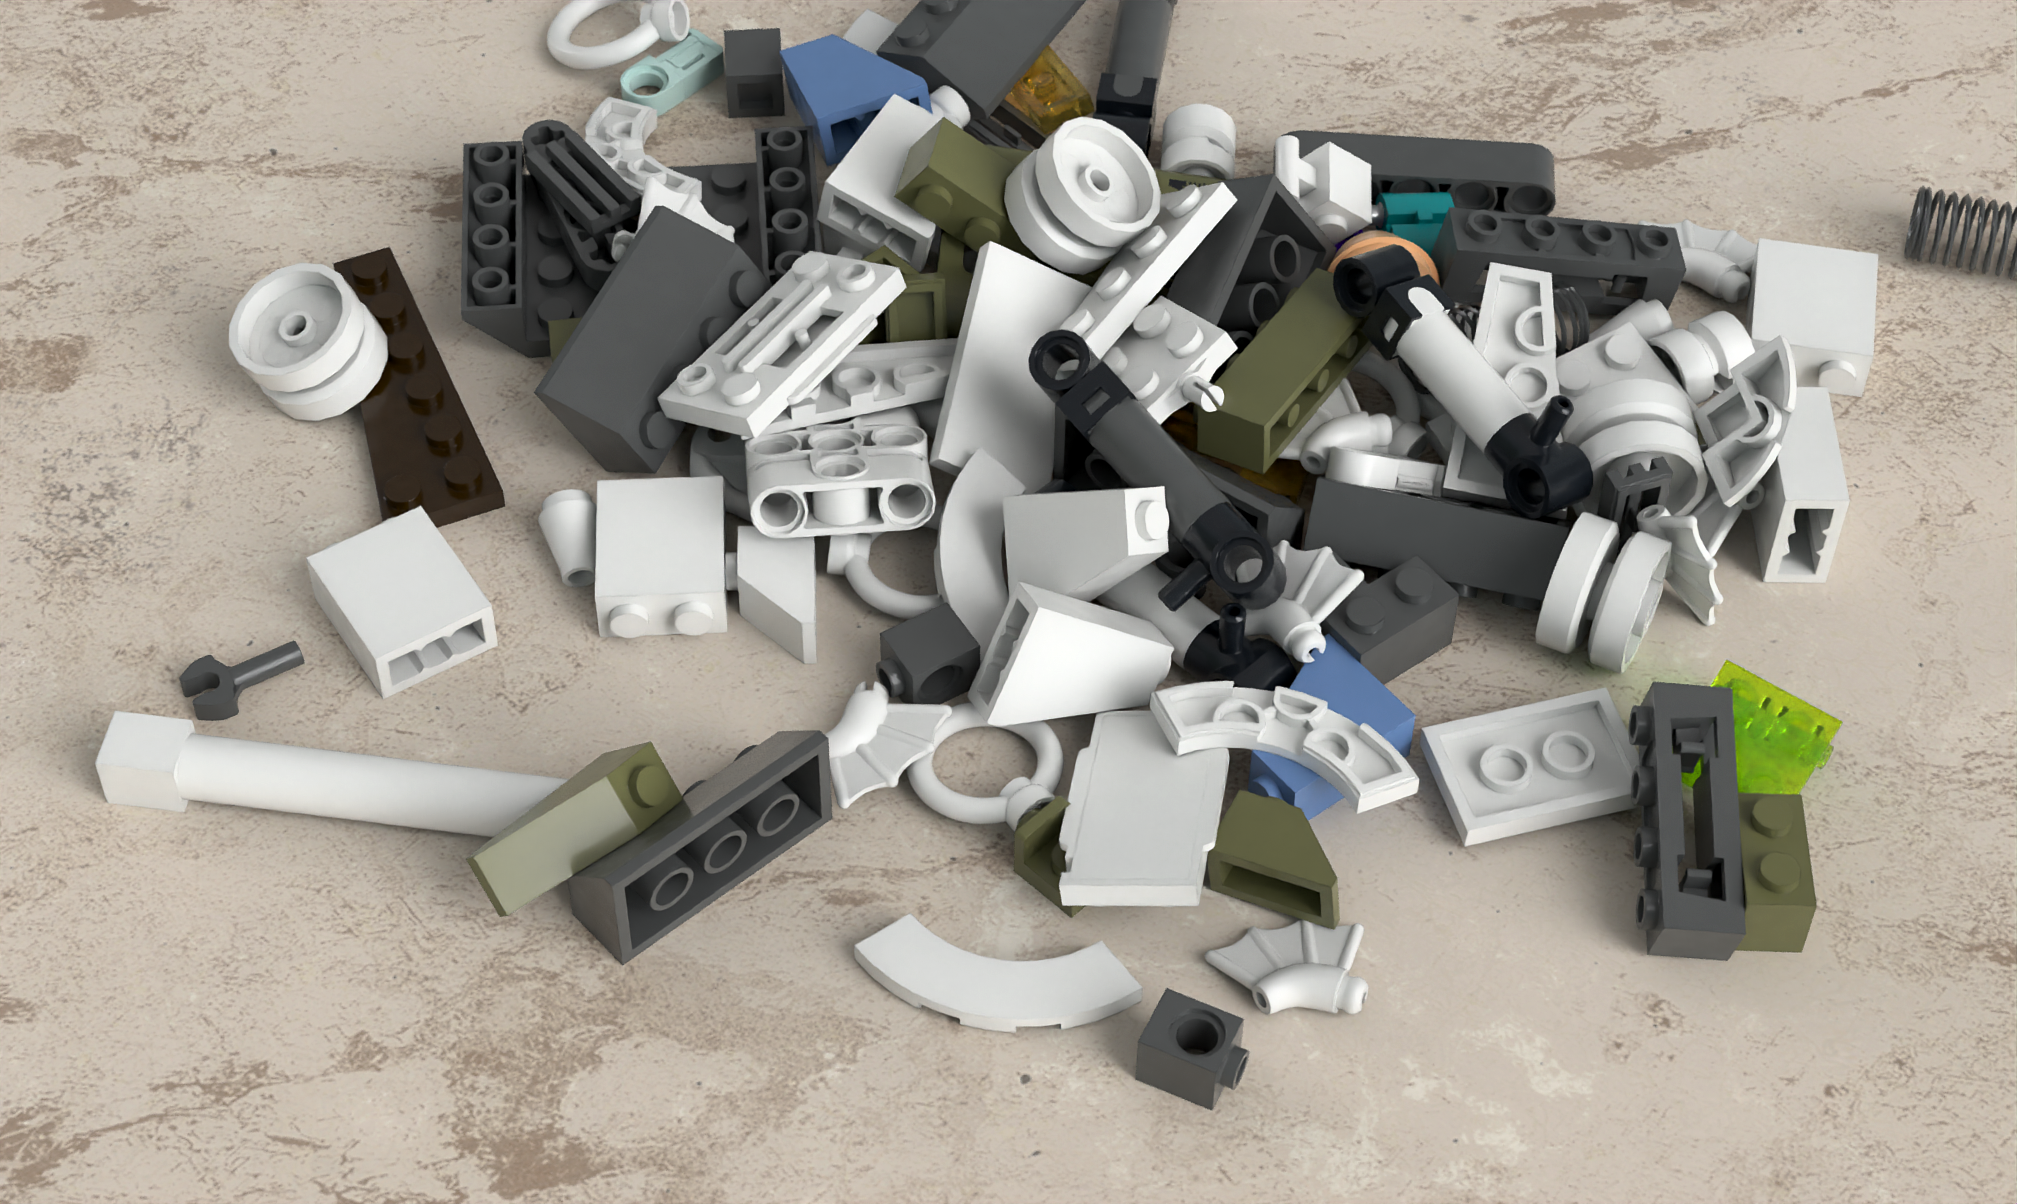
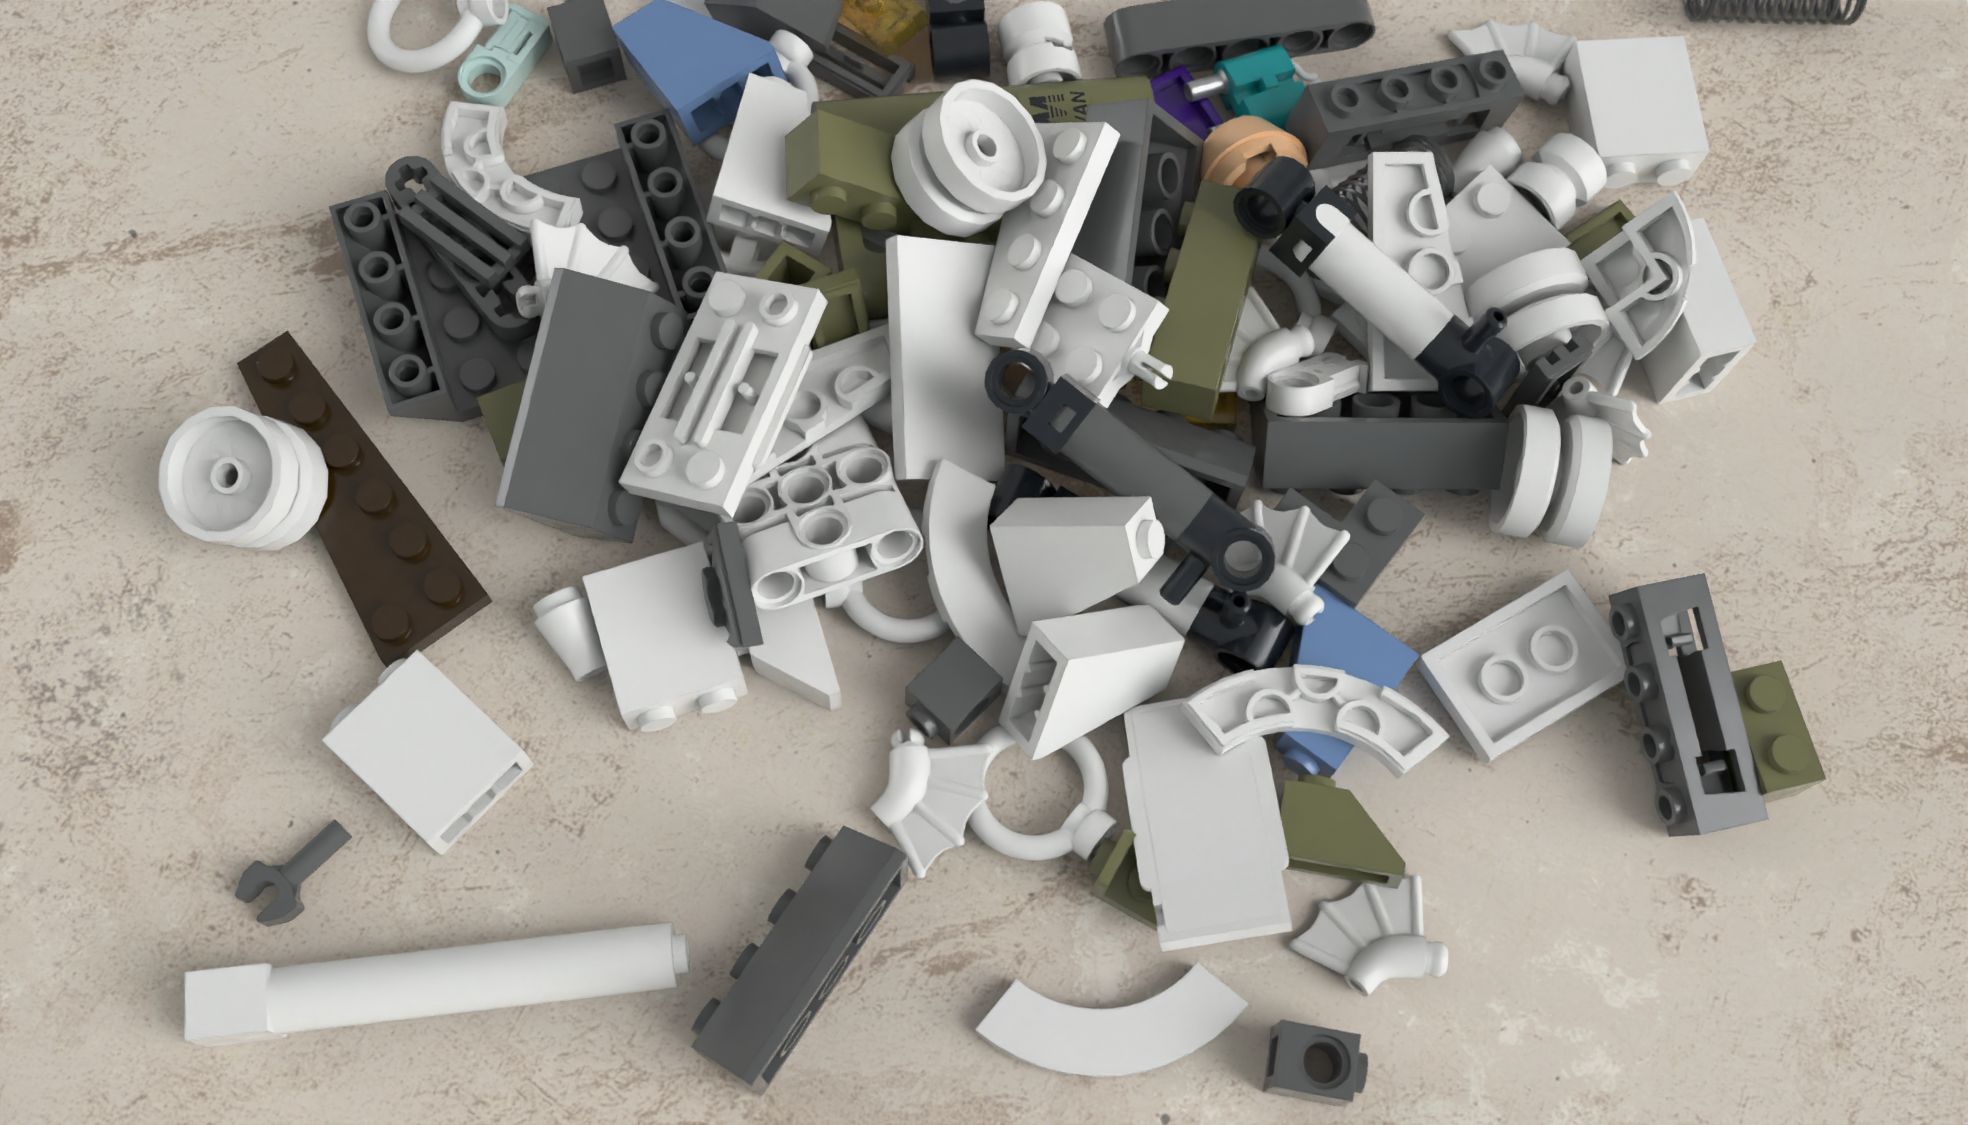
camera: 20 degrees left, 20 degrees up
(575, 826) = (686, 995): slope -> none
(732, 509) = (729, 588): none -> dark grey tile
(1327, 185) = (1179, 77): white brick -> none
(1775, 735) = (1738, 581): clear neon green hinge -> none

